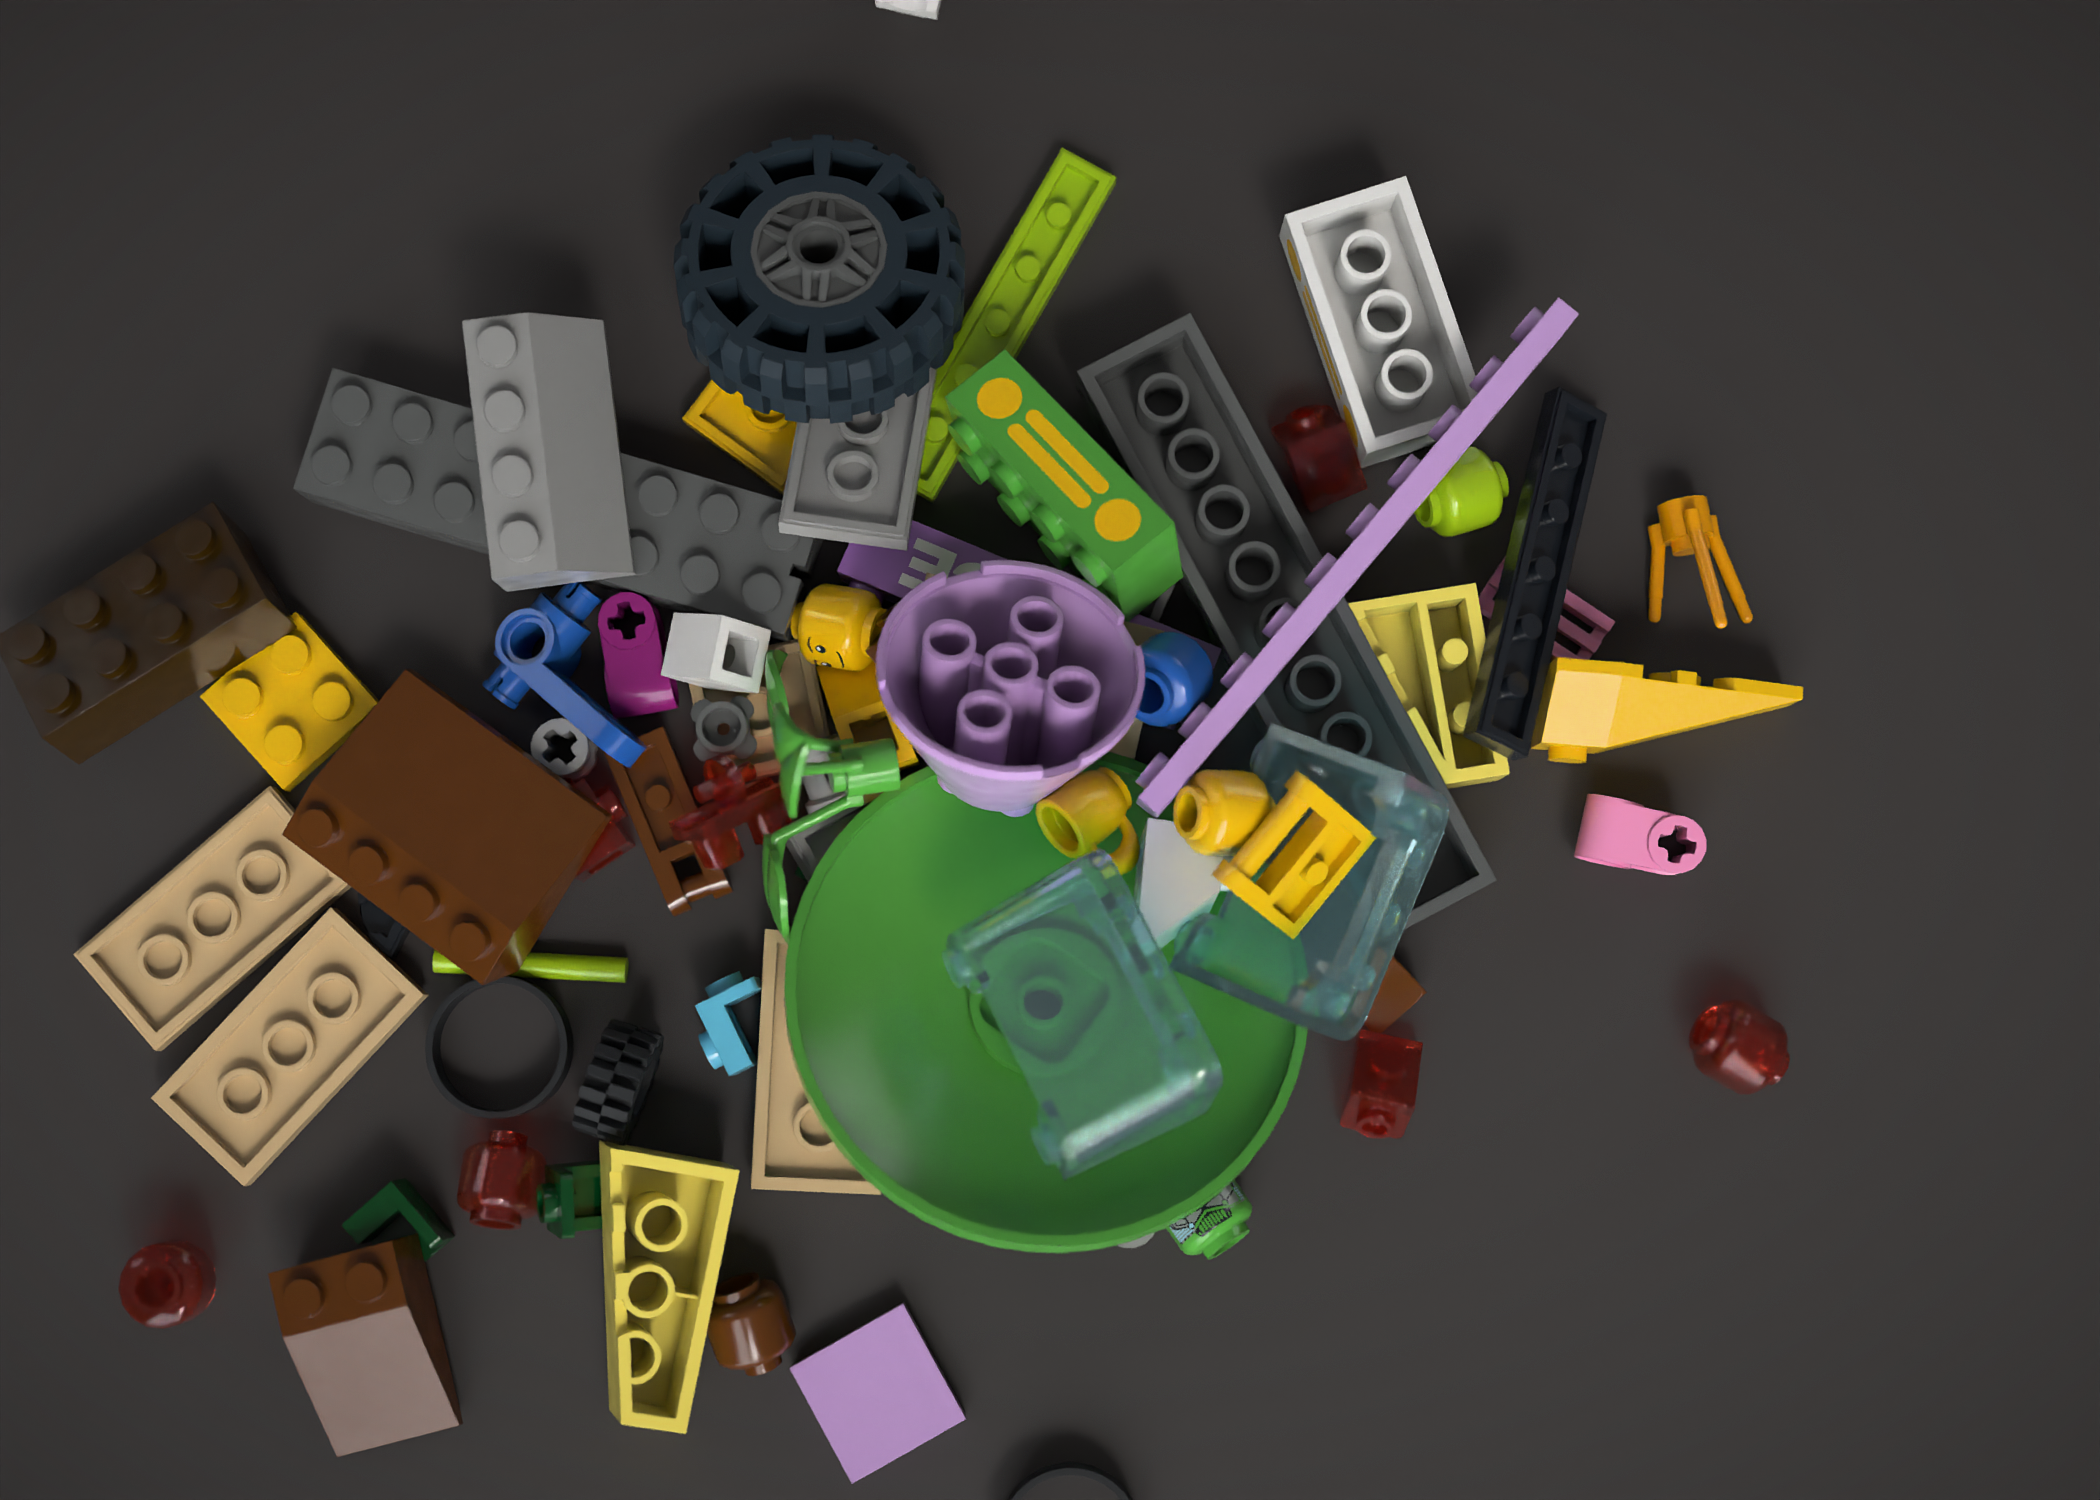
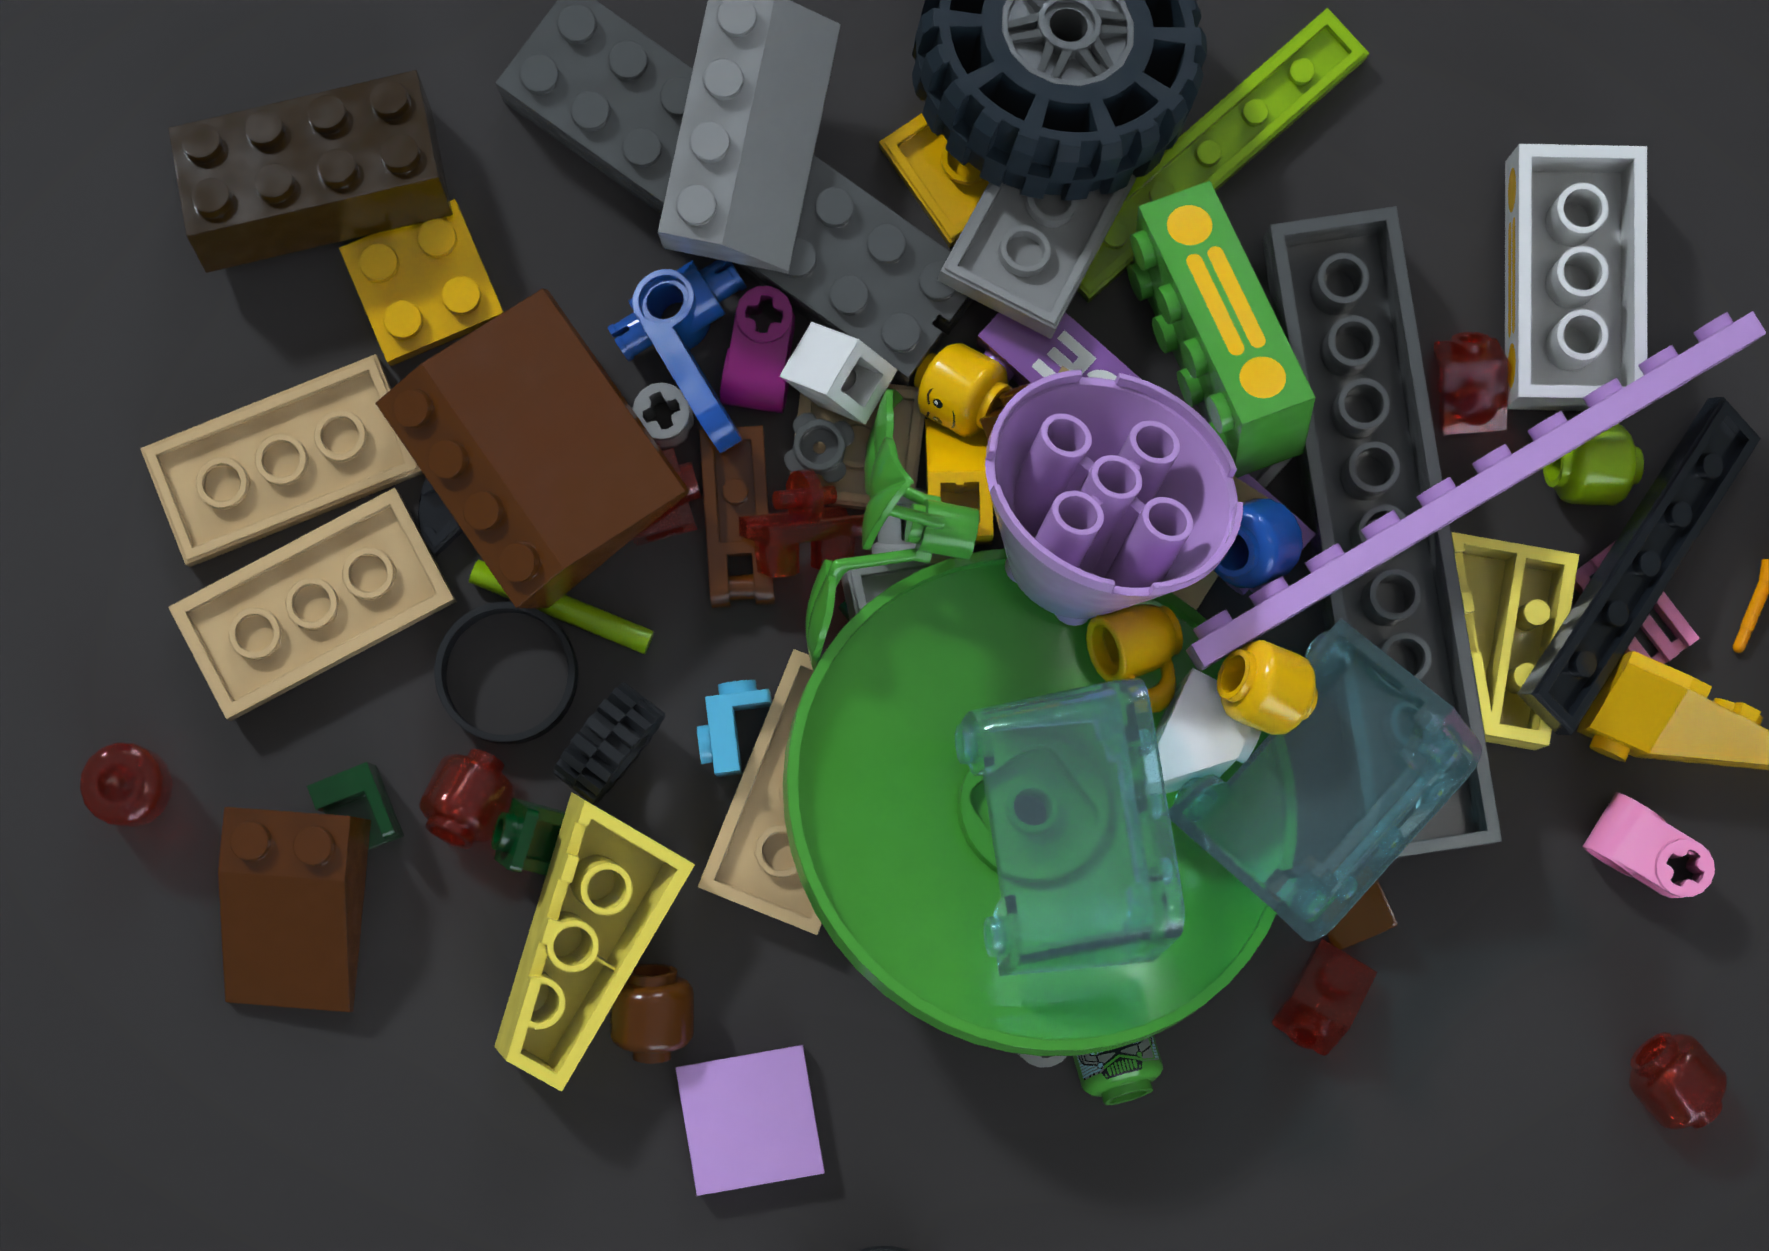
camera: 20 degrees right, 0 degrees up
(1307, 865) = (1328, 763): yellow plate -> none

